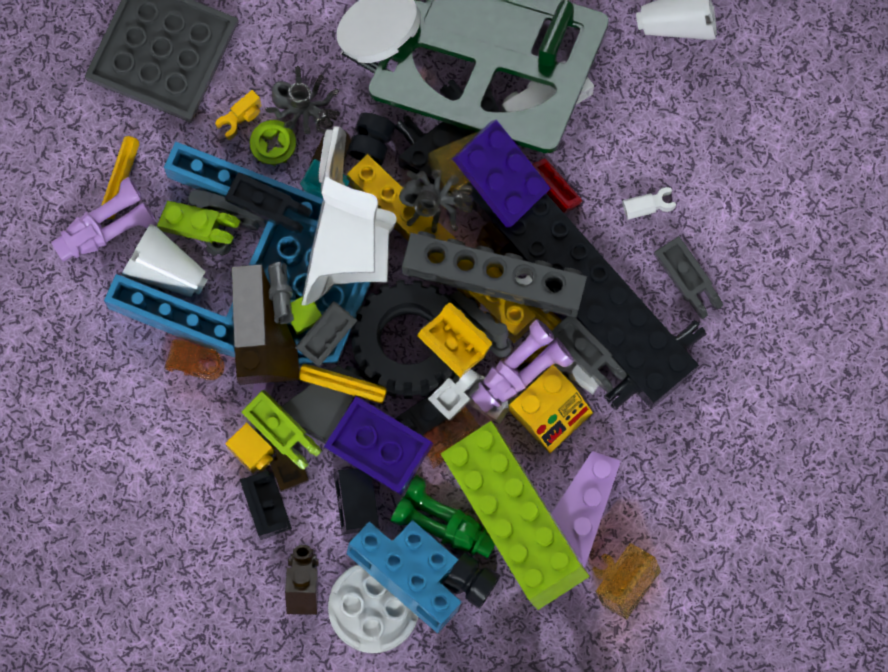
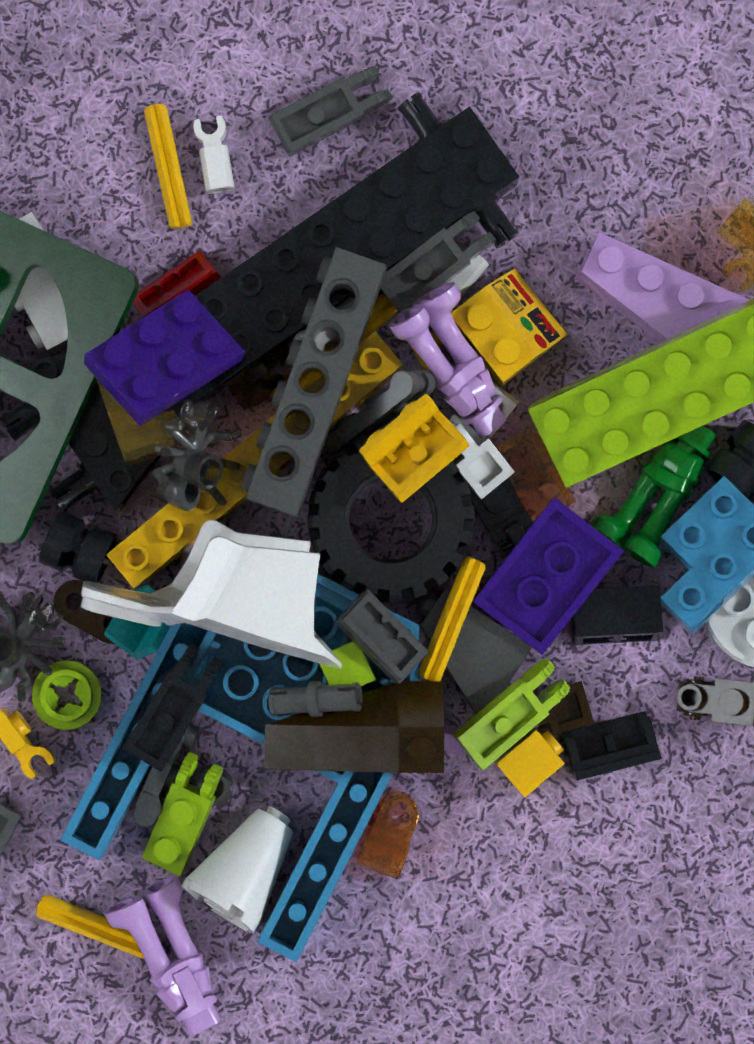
camera: 90 degrees left, 10 degrees up
(637, 174) = (168, 166): none -> yellow axle

